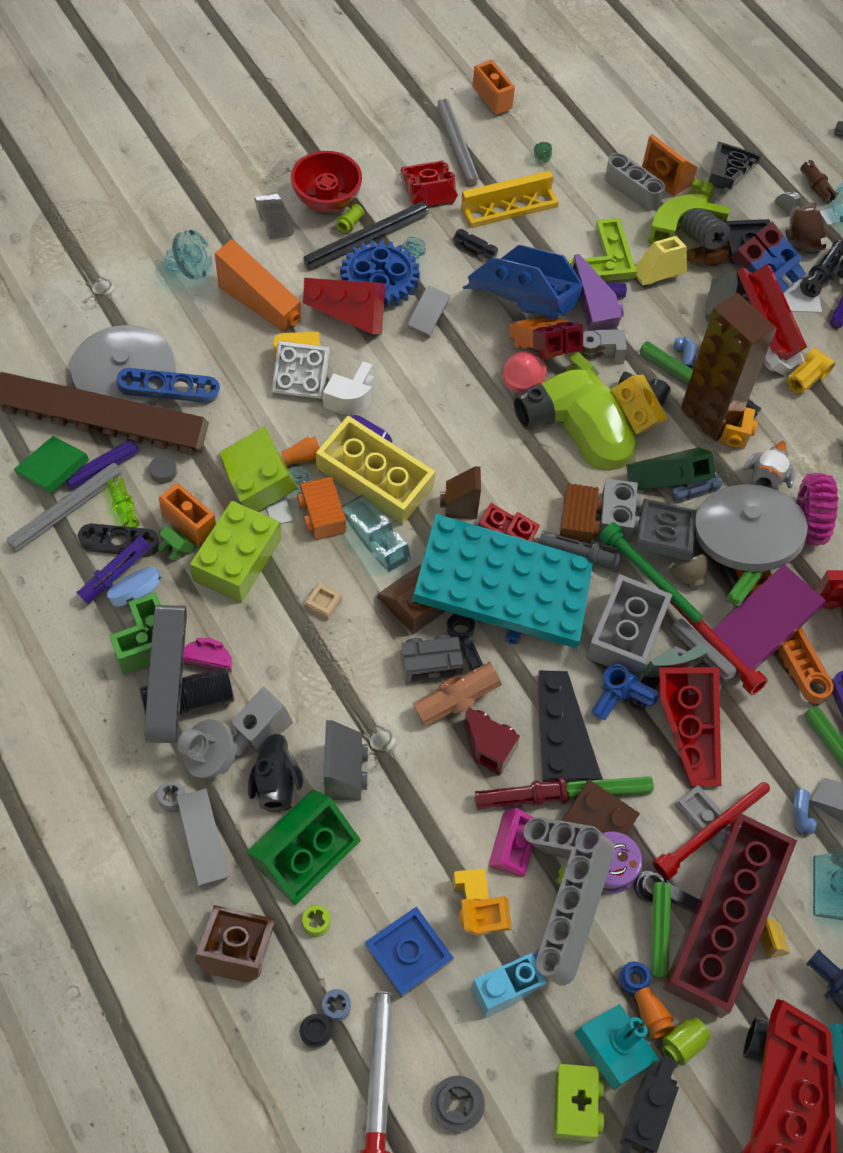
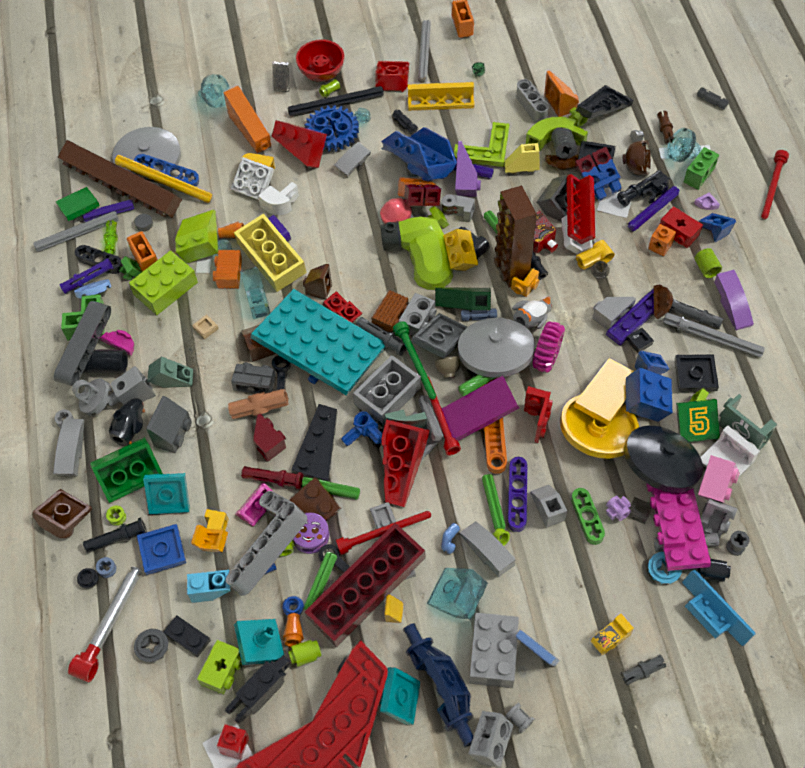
camera: 25 degrees right, 0 degrees up
(170, 397) = (163, 178): none -> yellow axle
(305, 684) = (169, 374): none -> sand green slope
(343, 943) = (125, 533): none -> black pin
(385, 865) = (166, 493): none -> teal tile
(503, 1071) = (187, 636): none -> black plate
(825, 389) = (600, 265): none -> clear smoke plate

